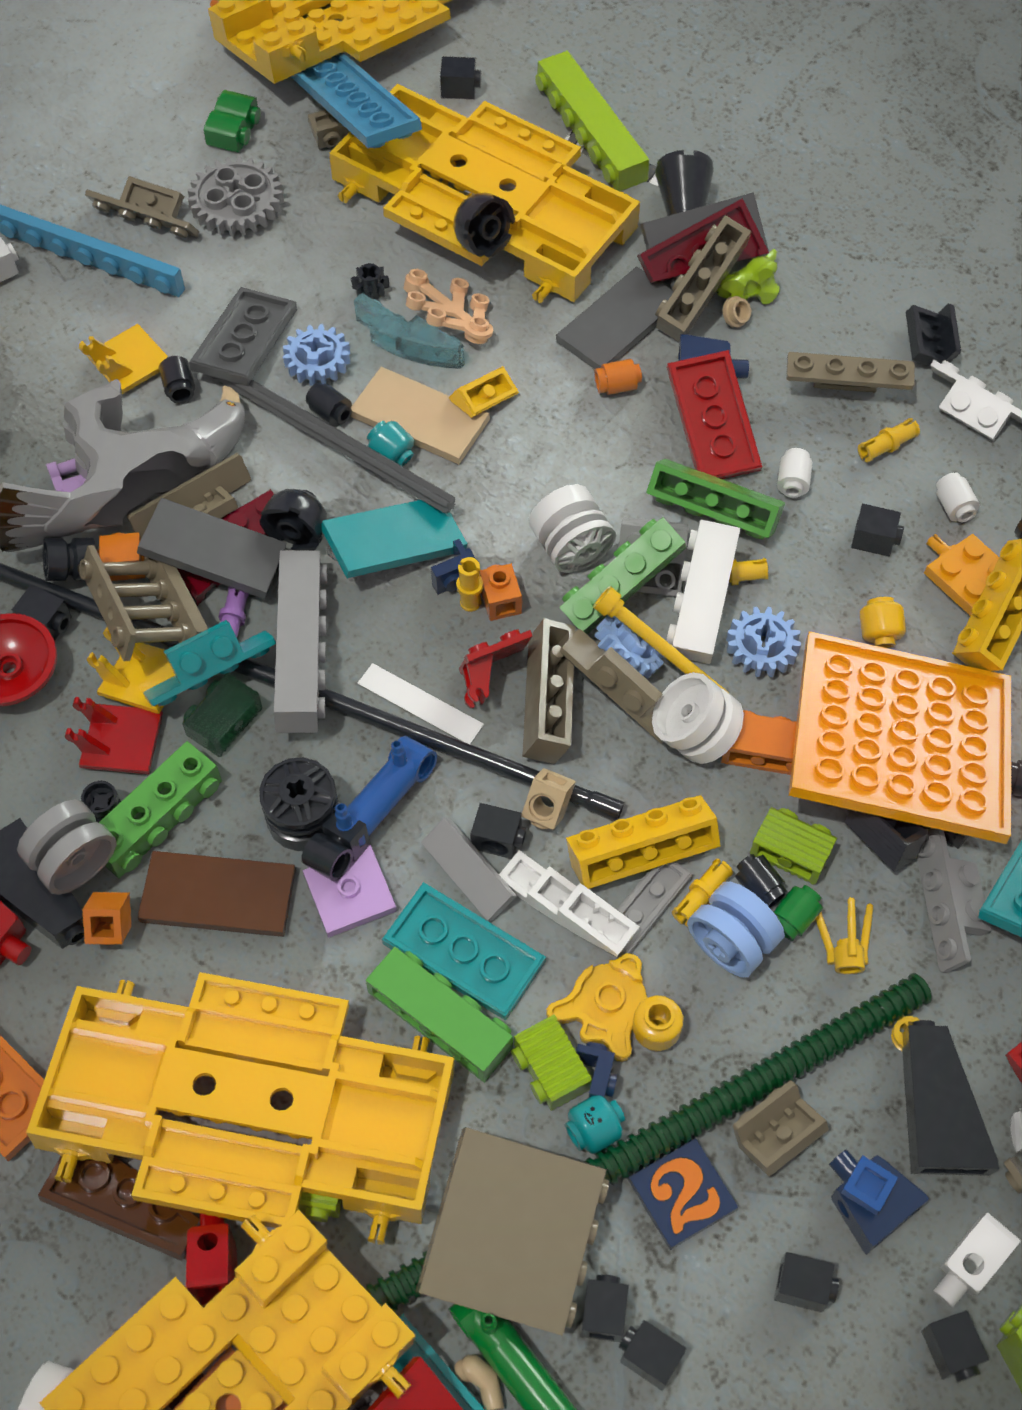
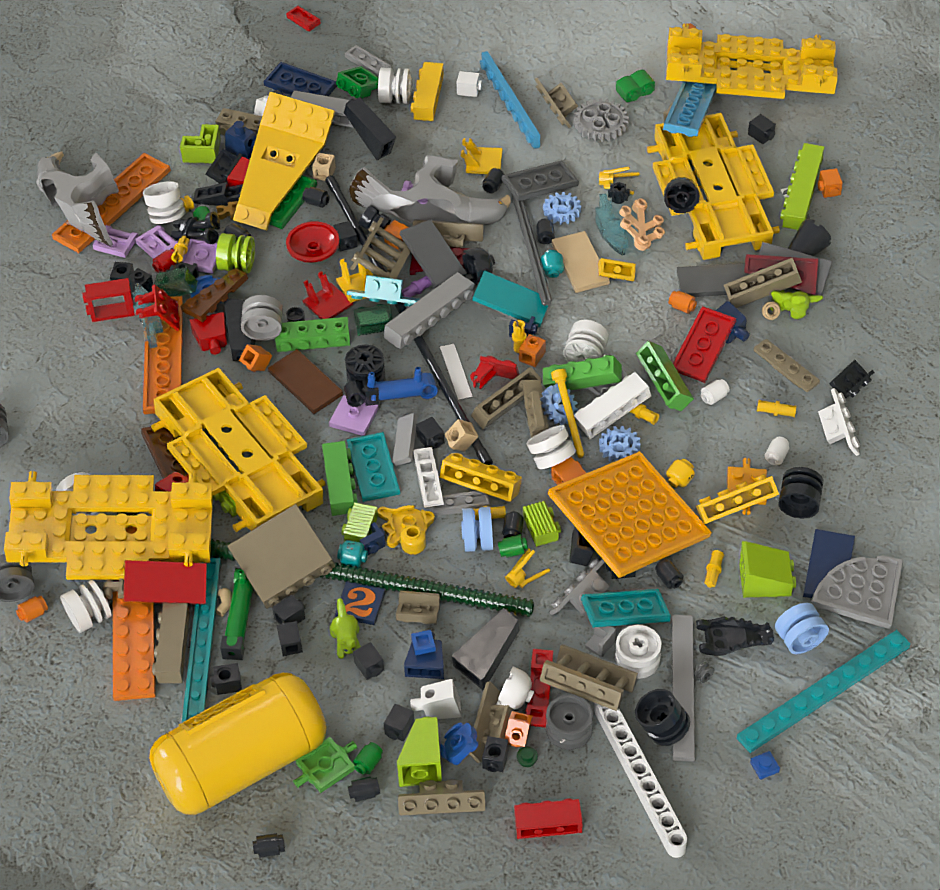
camera: 45 degrees right, 10 degrees down
(330, 271) = (607, 177): none -> yellow plant
(621, 93) = (830, 183): none -> orange brick
(718, 1264) = (344, 629): none -> lime animal
(877, 530) = (723, 437): black brick -> none

